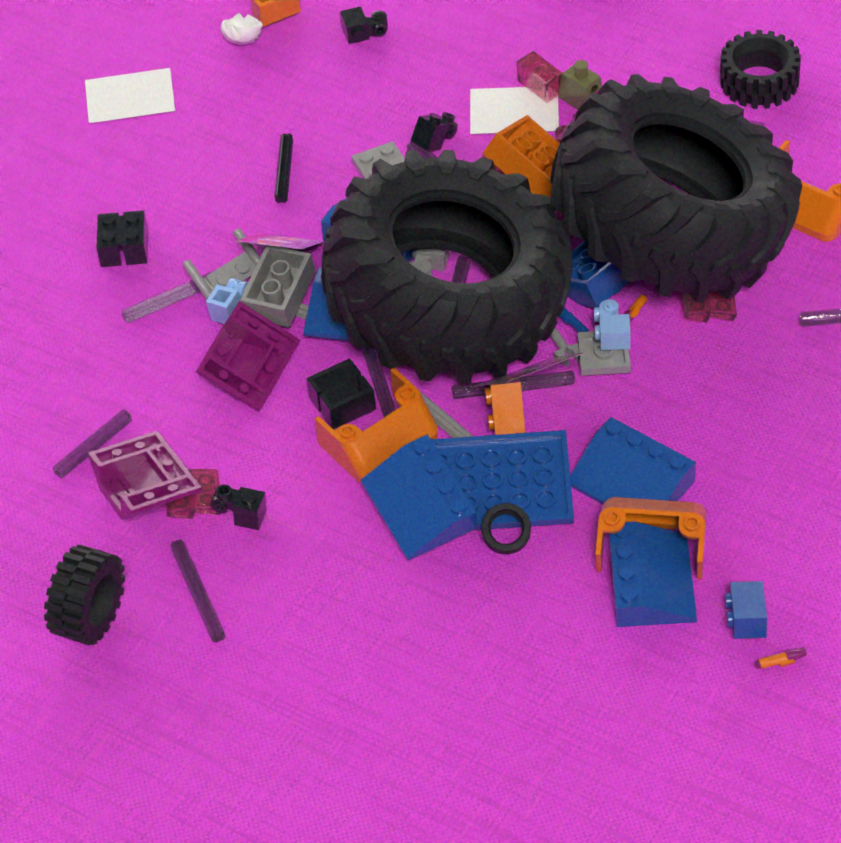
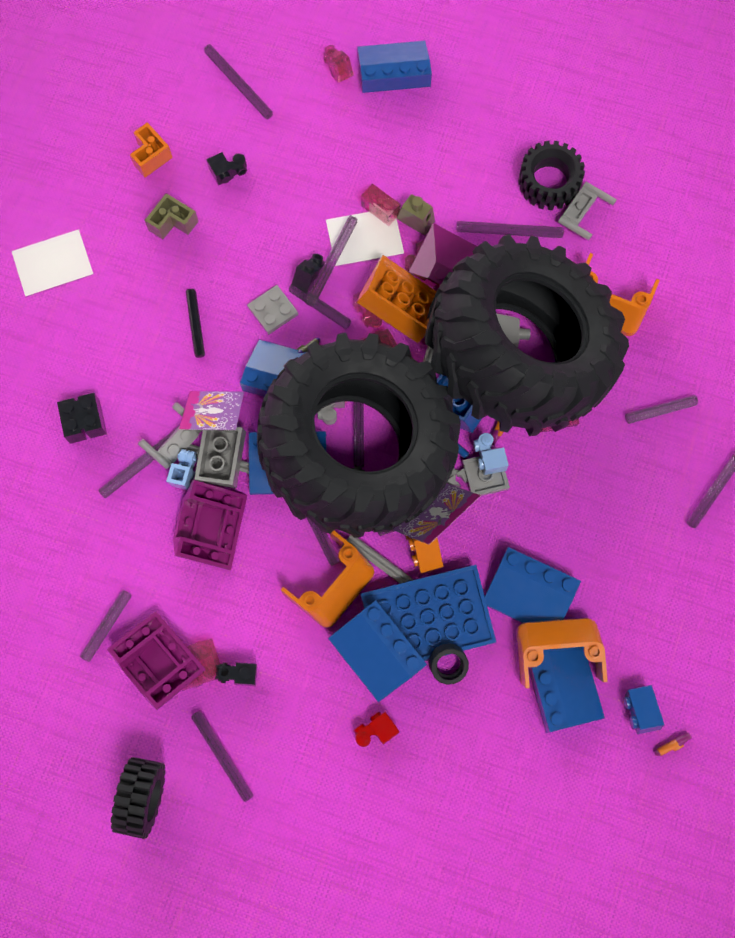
camera: 15 degrees left, 25 degrees up
(241, 30) = (129, 185): white hair -> none
(282, 58) = (171, 214): none -> brick
(341, 393) = (292, 552): black piece -> none
(402, 583) = (380, 726): none -> red brick
(466, 122) = (331, 261): none -> clear purple axle
(792, 105) = (580, 207): none -> light grey plate

